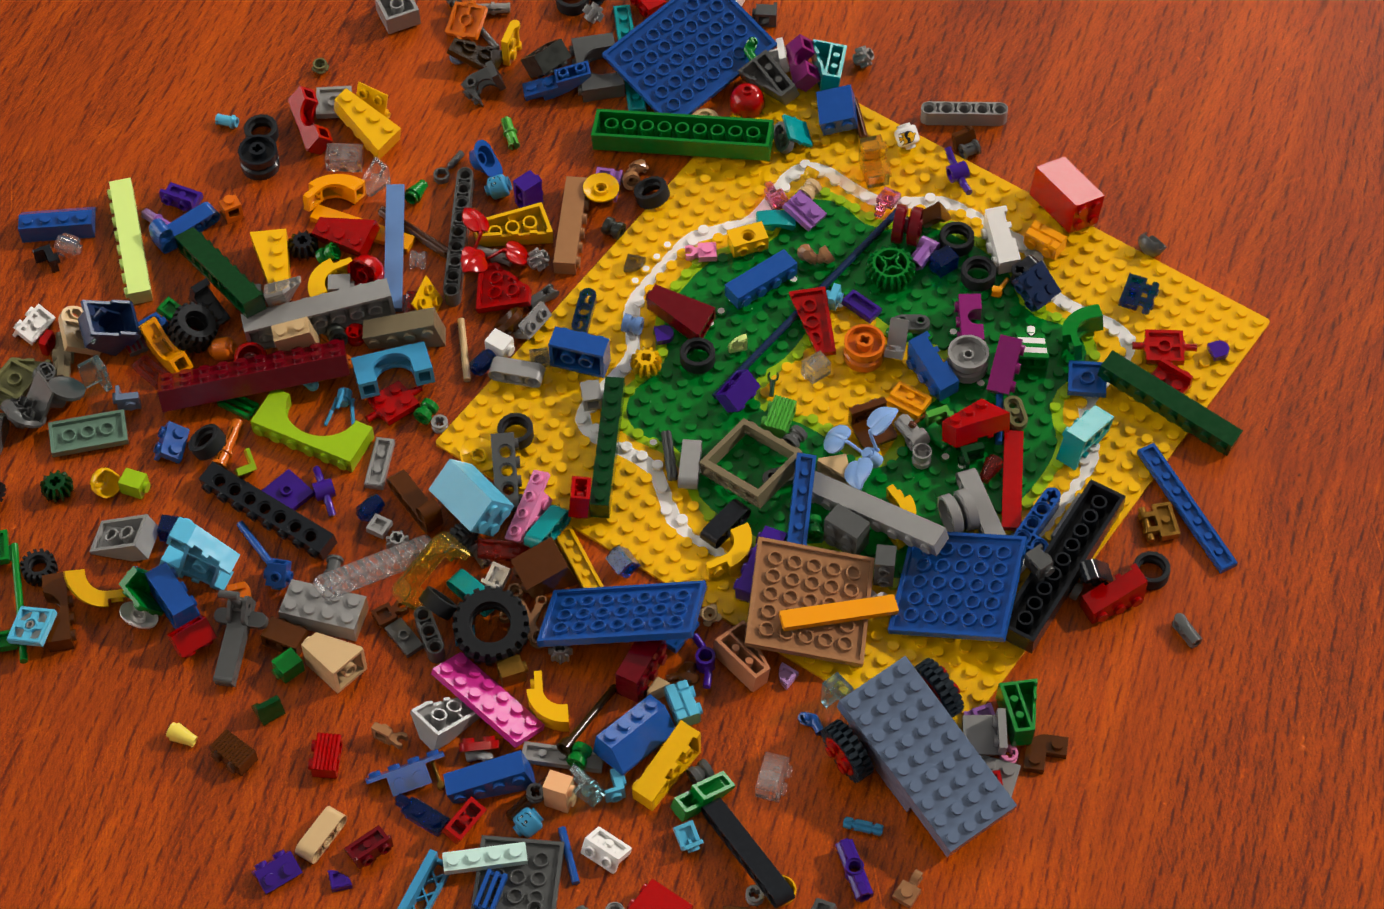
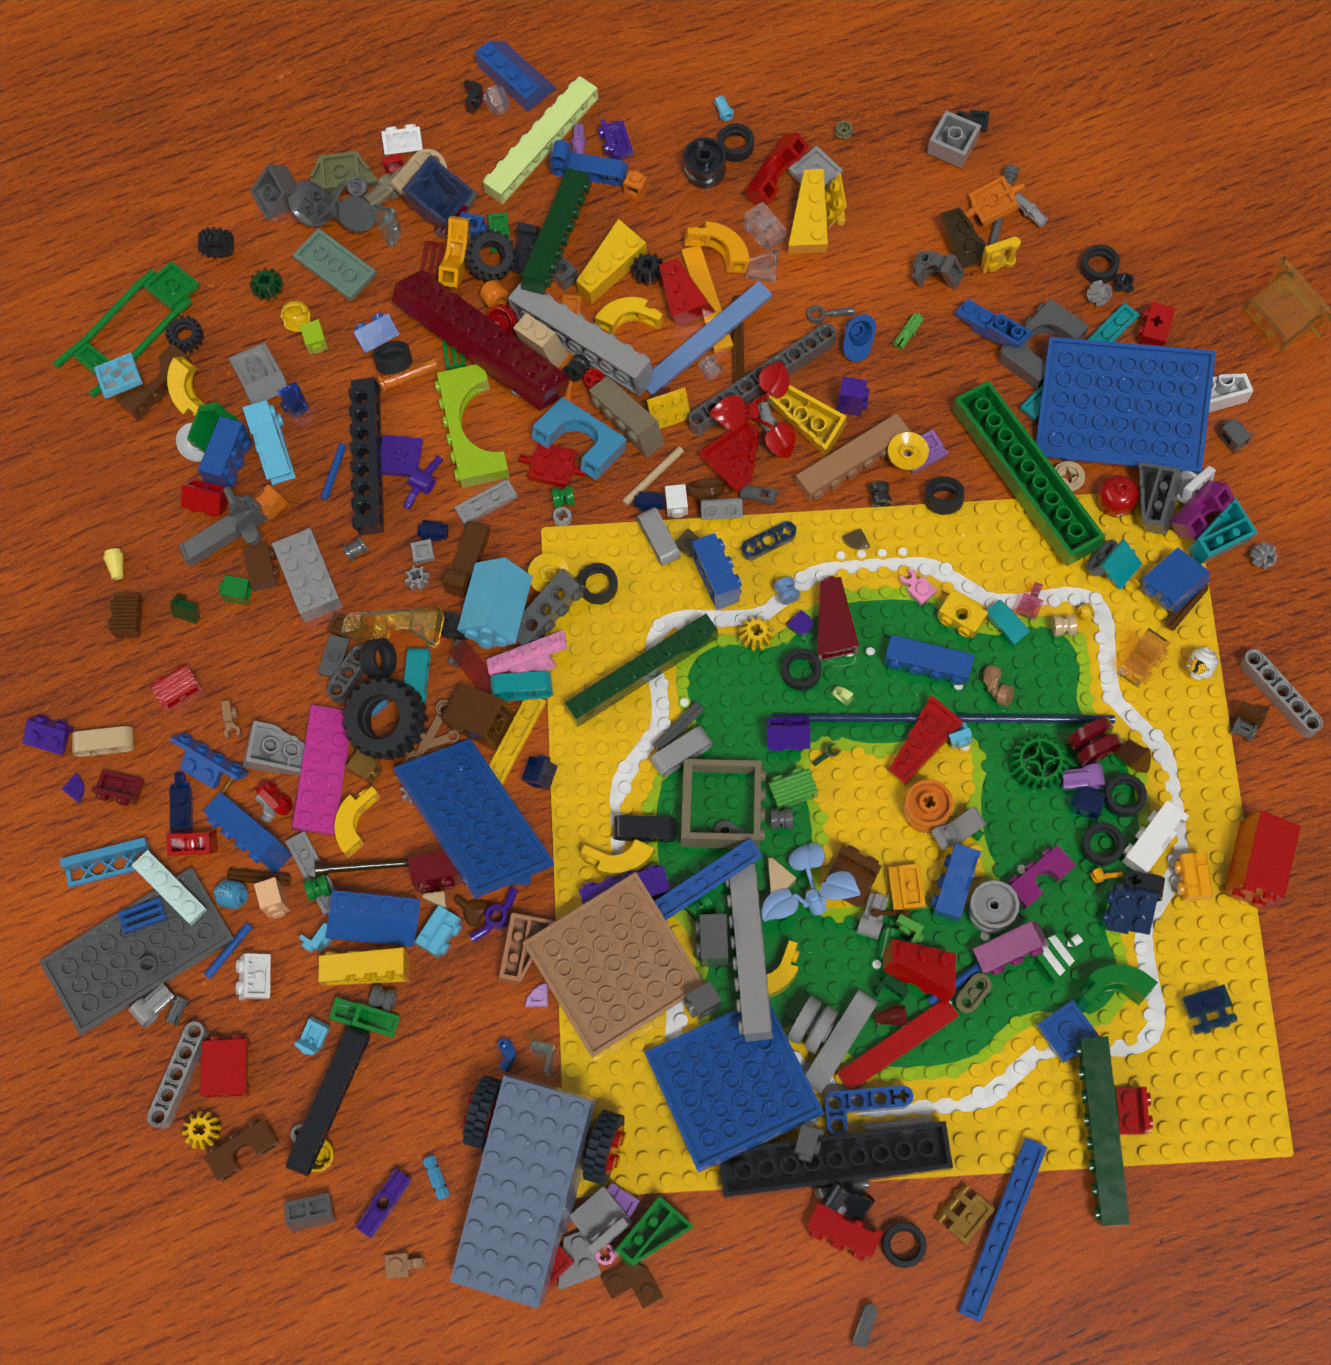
camera: 55 degrees right, 15 degrees up
(126, 401) = (386, 268): sand blue bracket -> none
(250, 467) = (394, 406): lime panel -> none
(278, 573) = (313, 512): blue brick -> none
(281, 291) = (568, 289): light grey wedge -> none
(330, 251) = (654, 294): green wheel -> none
(334, 660) = (259, 621): tan slope -> none
(339, 281) = (630, 330): light grey brick -> none
(343, 399) = (522, 423): dark azure plant -> none
(365, 269) = (661, 339): red cylinder -> none
(369, 569) = (366, 580): clear beam -> none
(414, 193) = (777, 309): green cone -> none
(497, 576) = (444, 683): white bracket -> none
(498, 186) = (840, 366): dark azure head -> none
(534, 786) = (254, 875): dark grey bush -> none
(538, 259) = (792, 460): light grey gear -> none
(546, 58) = (1008, 296): pearl dark grey brick -> none
(579, 497) = (566, 688): red brick -> none
(587, 787) = (295, 916): clear light blue bracket -> none
(591, 395) = (684, 613): light grey brick -> none
(631, 177) = (946, 466): medium nougat arm -> none
(712, 609) = (541, 886): tan plate -> none
(750, 48) = (1171, 453): green arm -> none
(772, 777) = (421, 1064): clear brick -> none
(804, 210) = (1037, 638): medium lavender plate -> none
(816, 367) = (872, 779): clear brick -> none
(838, 612) = (620, 998): light orange tile -> none
(861, 306) = (977, 767): dark purple tile -> none
(886, 199) = (1115, 699): clear pink plate -> none
(915, 326) = (995, 825): dark grey plate -> none
(921, 456) = (854, 940): light grey wheel -> none
(957, 171) = (1203, 739): dark purple piece -> none
(1082, 435) = (998, 1076): teal wedge -> none
(1150, 245) = (1280, 979): dark grey hair -> none
(1164, 344) = (1167, 1078): red plate -> none
(1218, 350) = (1209, 1132): dark purple tile -> none

